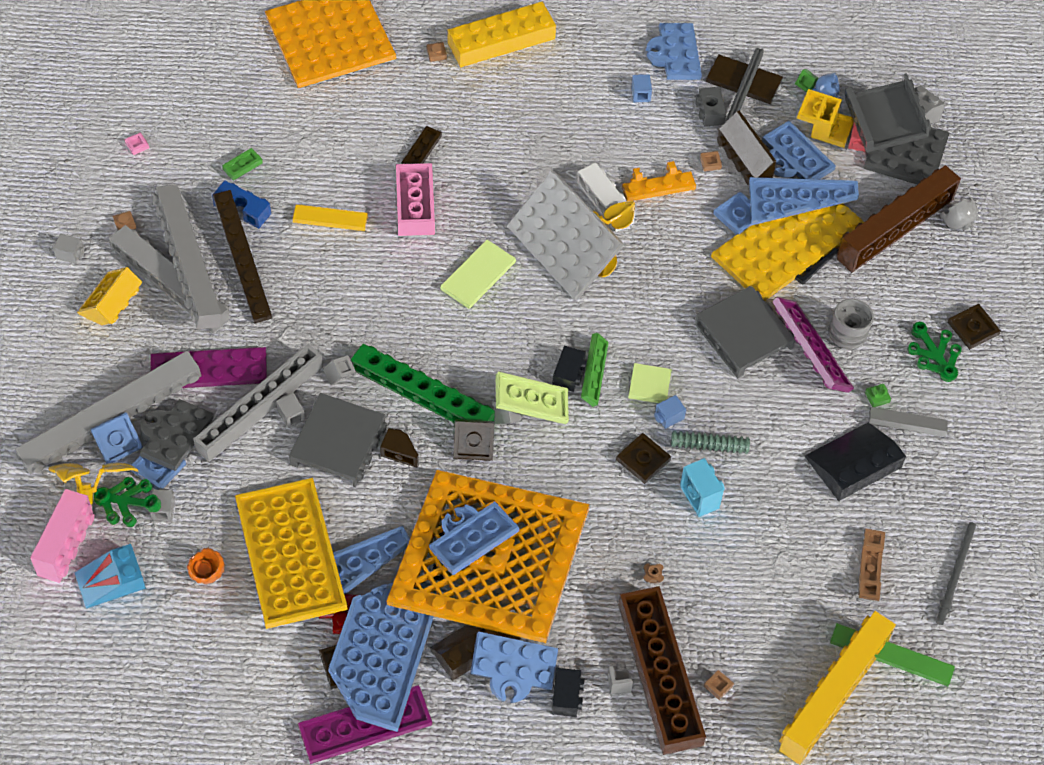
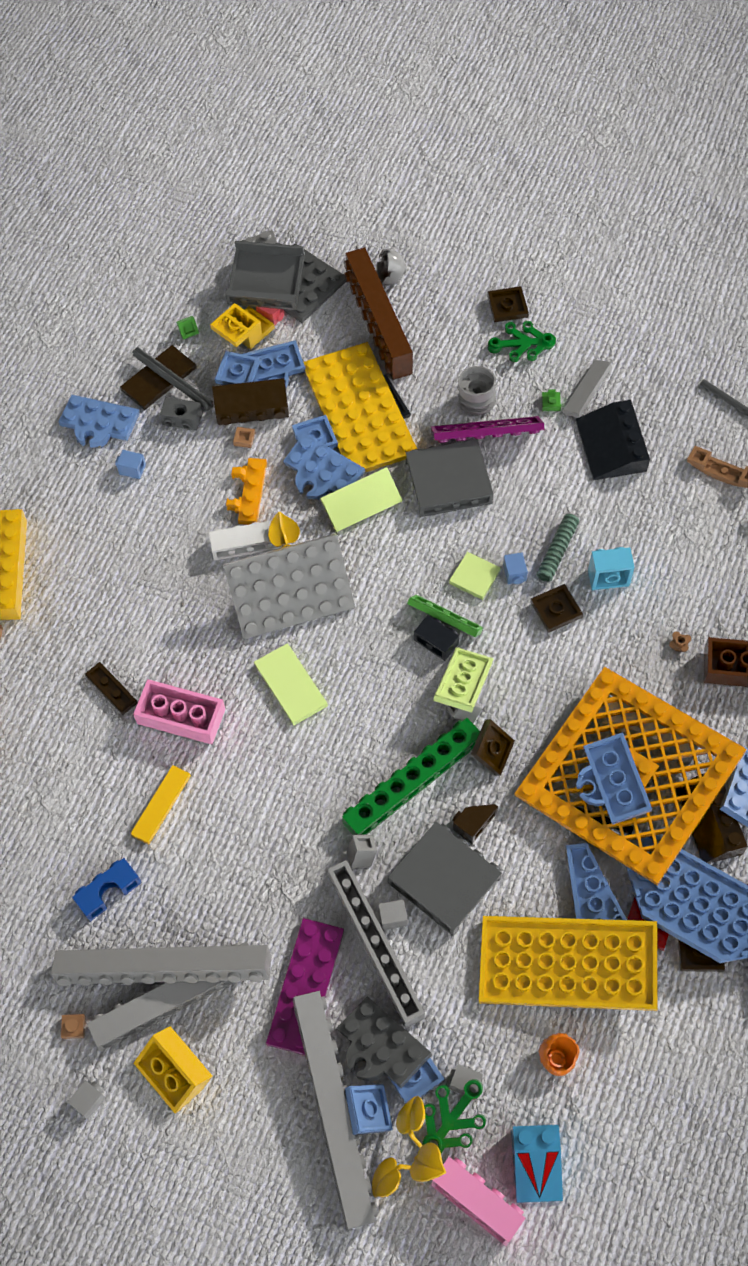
camera: 65 degrees left, 5 degrees up
(242, 164) = (51, 874): bright green plate -> none
(242, 256) = (178, 907): dark brown plate -> none
(685, 268) = (361, 499): none -> yellowish green tile
(703, 228) = (321, 467): none -> medium blue plate
(775, 129) = (237, 369): none -> medium blue plate
(787, 197) = (318, 388): medium blue wing -> none
(828, 85) = (206, 312): medium blue cylinder -> none

